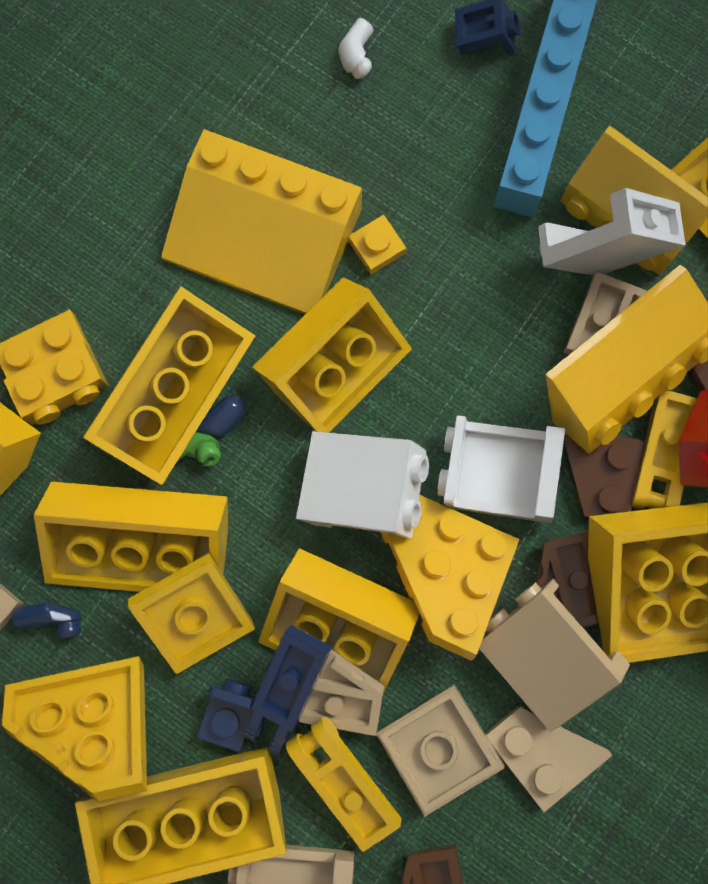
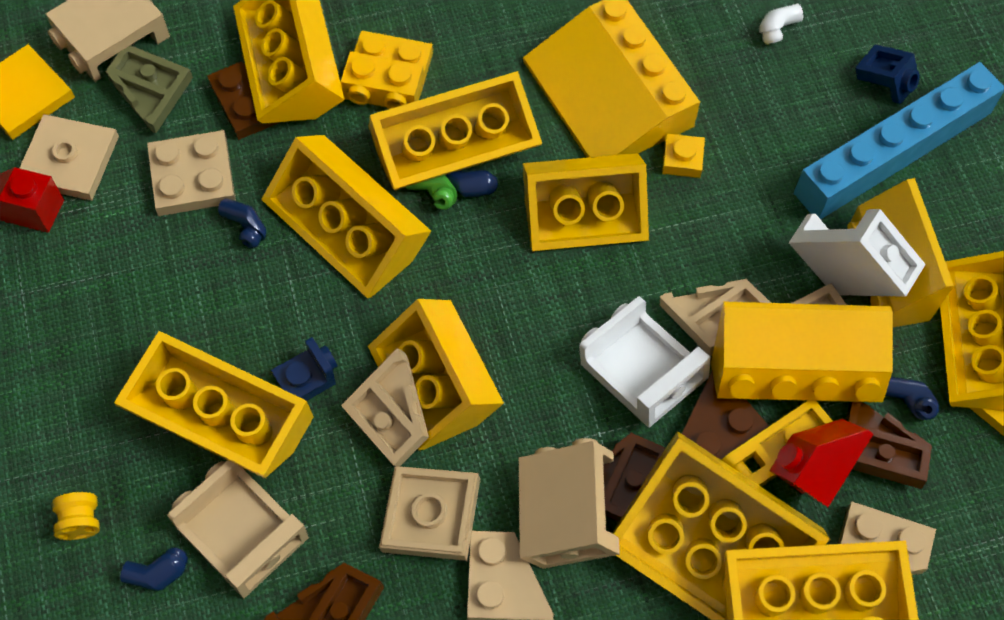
camera: 35 degrees right, 15 degrees down
(85, 725) = (208, 296): yellow plate -> none
(191, 613) = (340, 284): yellow plate -> none
(288, 685) = (359, 375): dark blue hinge -> none
(344, 784) = (342, 478): yellow plate -> none
(363, 483) = (533, 288): white panel -> none
(453, 574) = (545, 393): yellow plate -> none
(519, 372) = (701, 312): none -> tan wing

